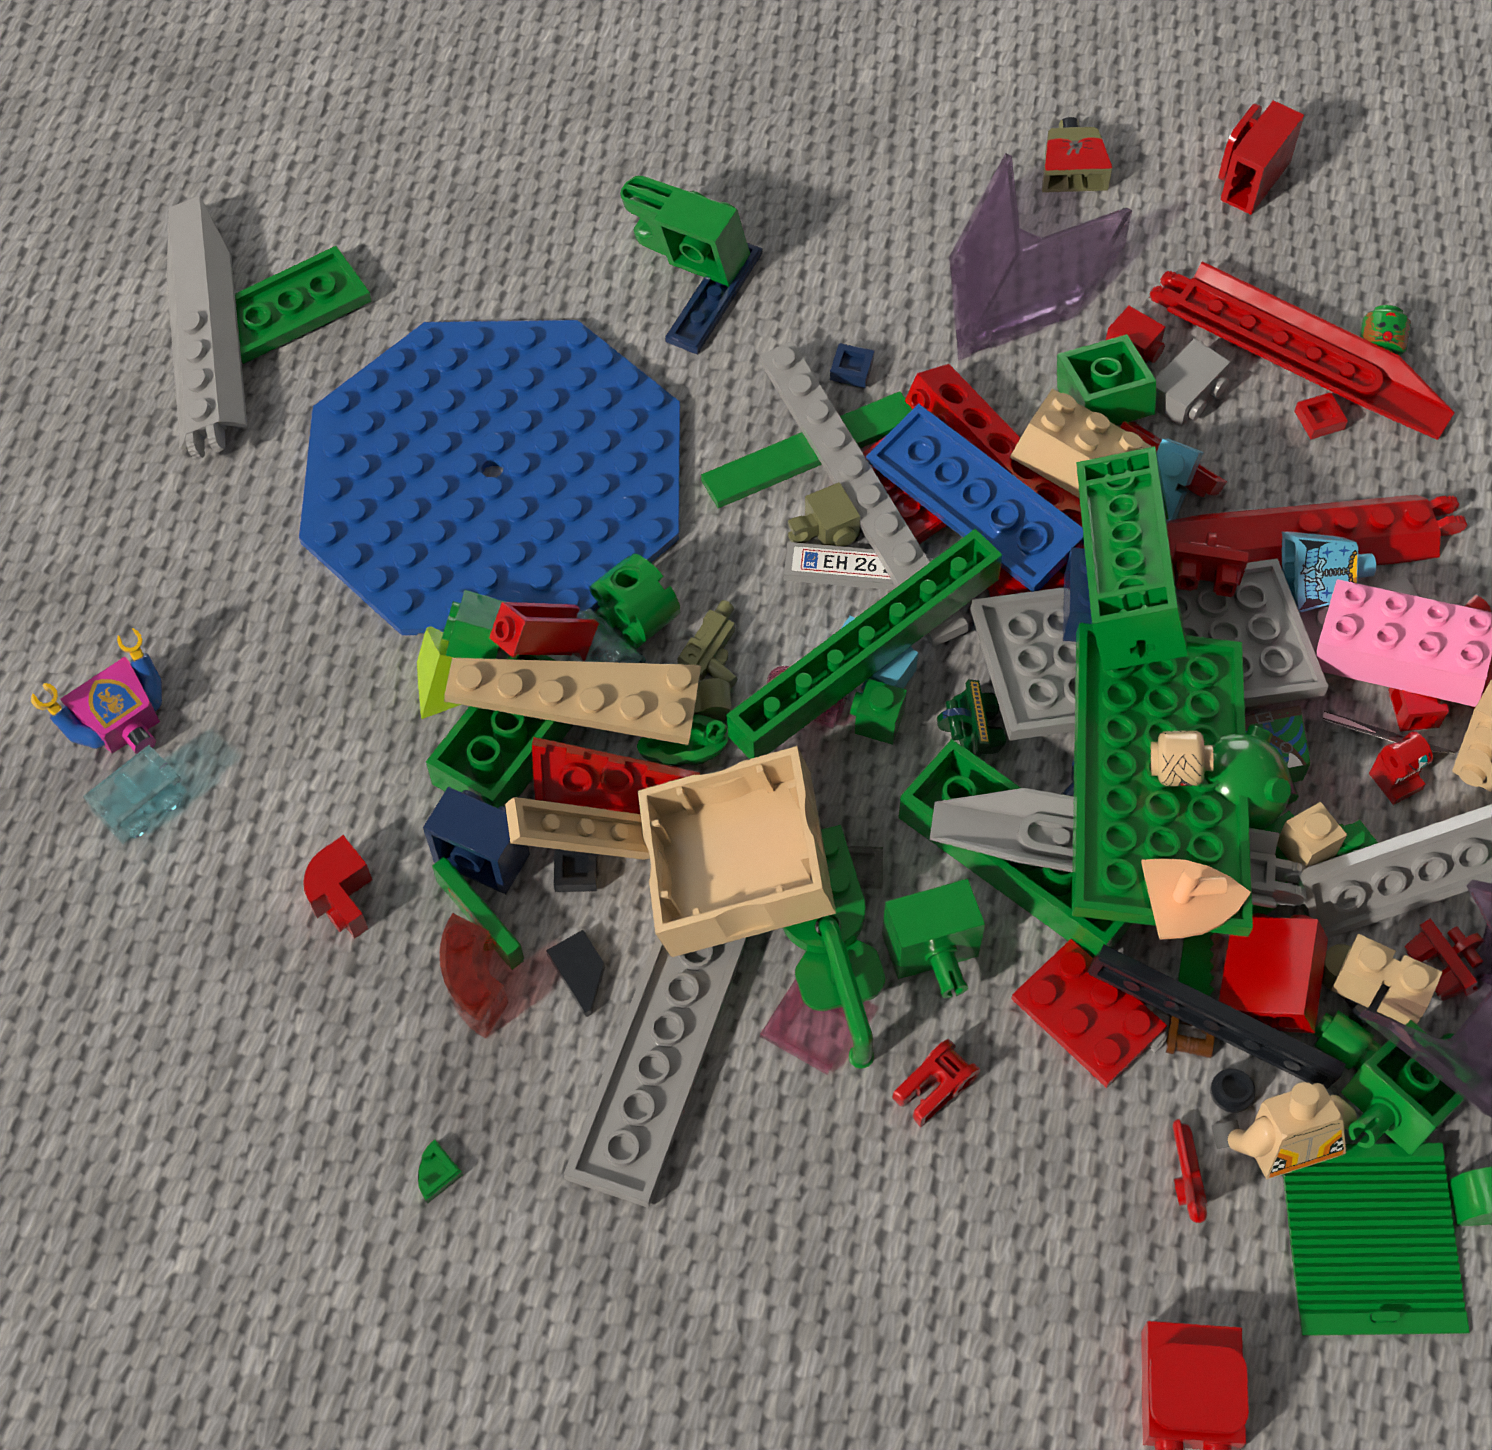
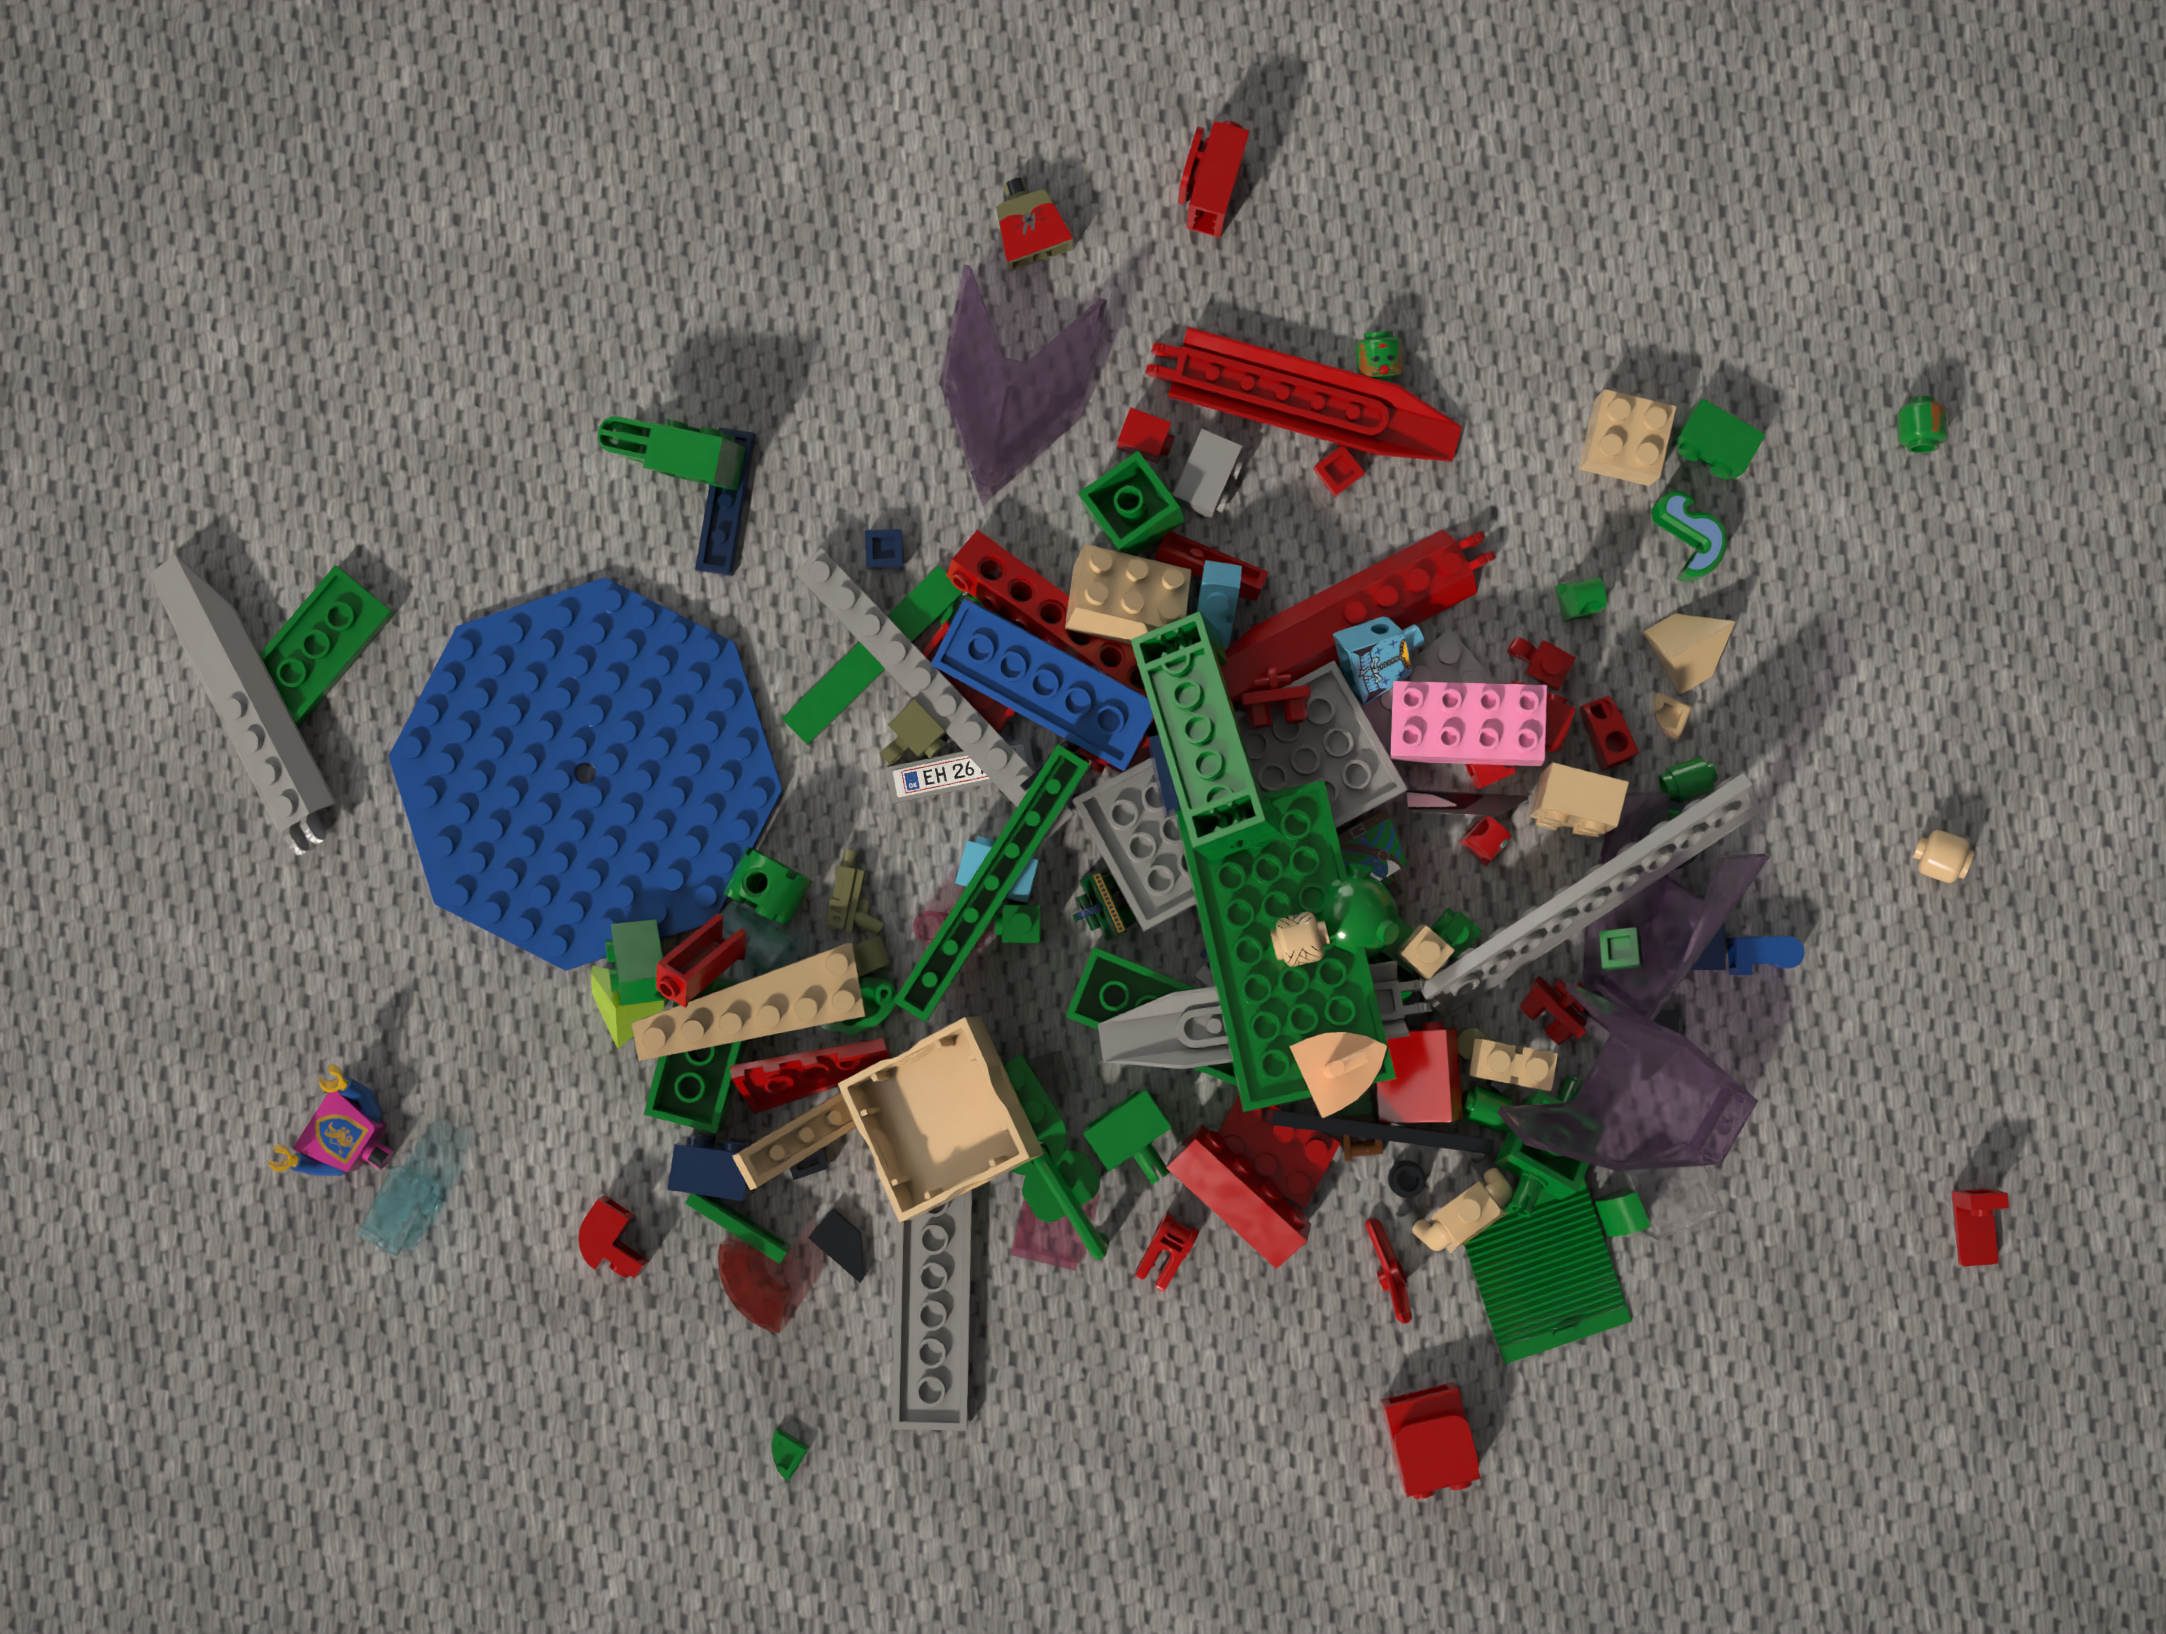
camera: 15 degrees left, 25 degrees up
(1038, 1040) = (1239, 1195): none -> red brick

